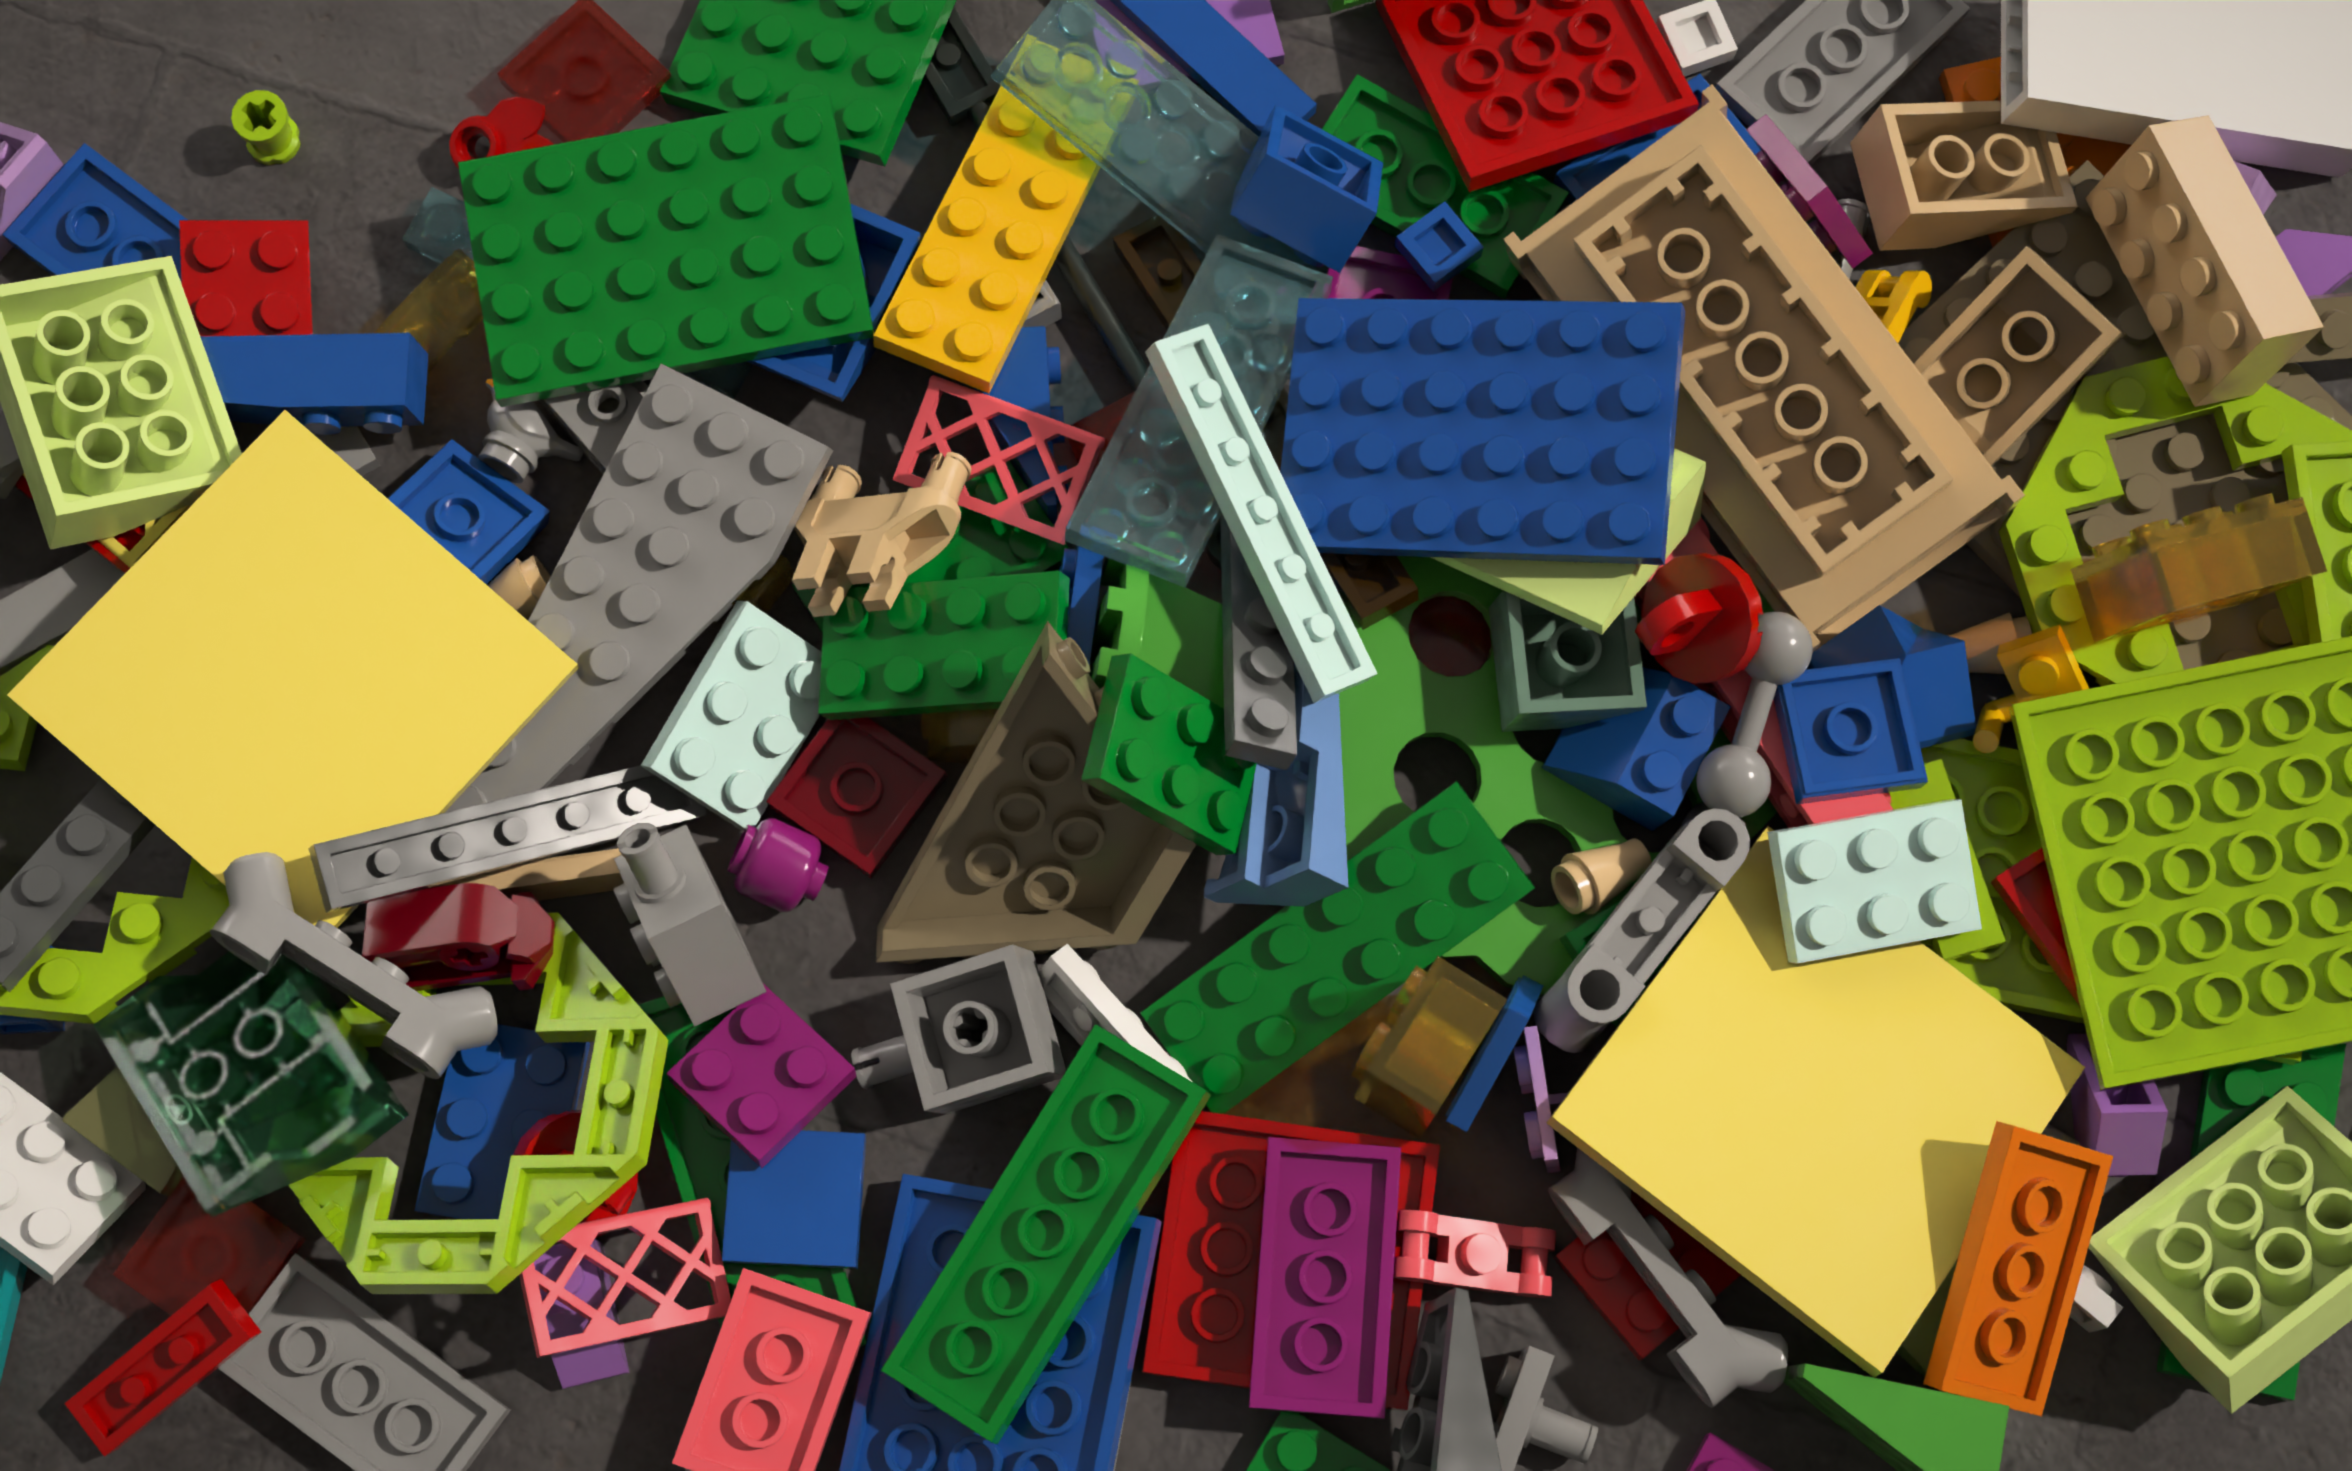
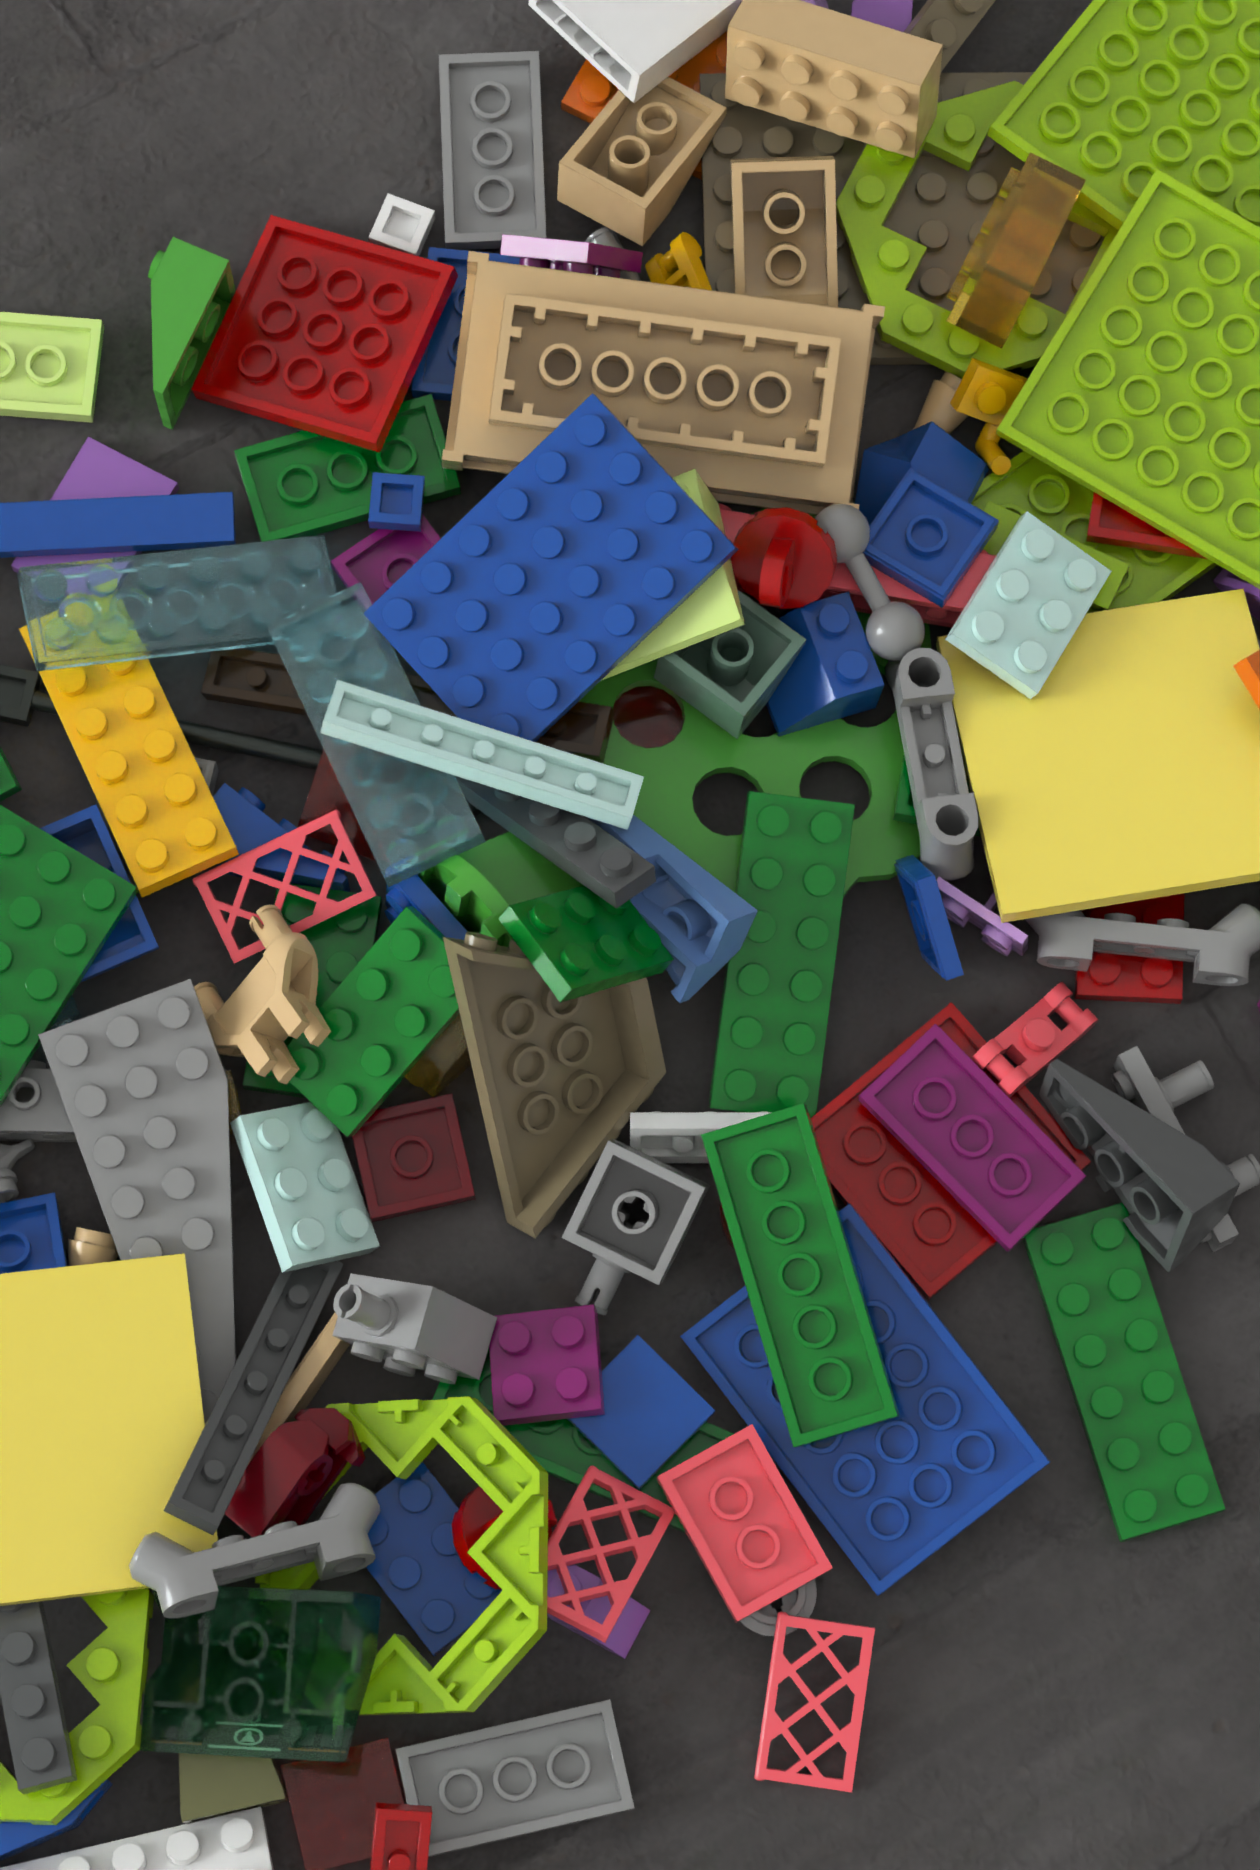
camera: 45 degrees left, 0 degrees up
(777, 865) = (417, 1246): magenta head -> none
(1307, 190) = (290, 546): blue slope -> none
(1434, 1034) = (892, 954): clear yellow brick -> none
(1596, 876) = (875, 765): tan cone -> none

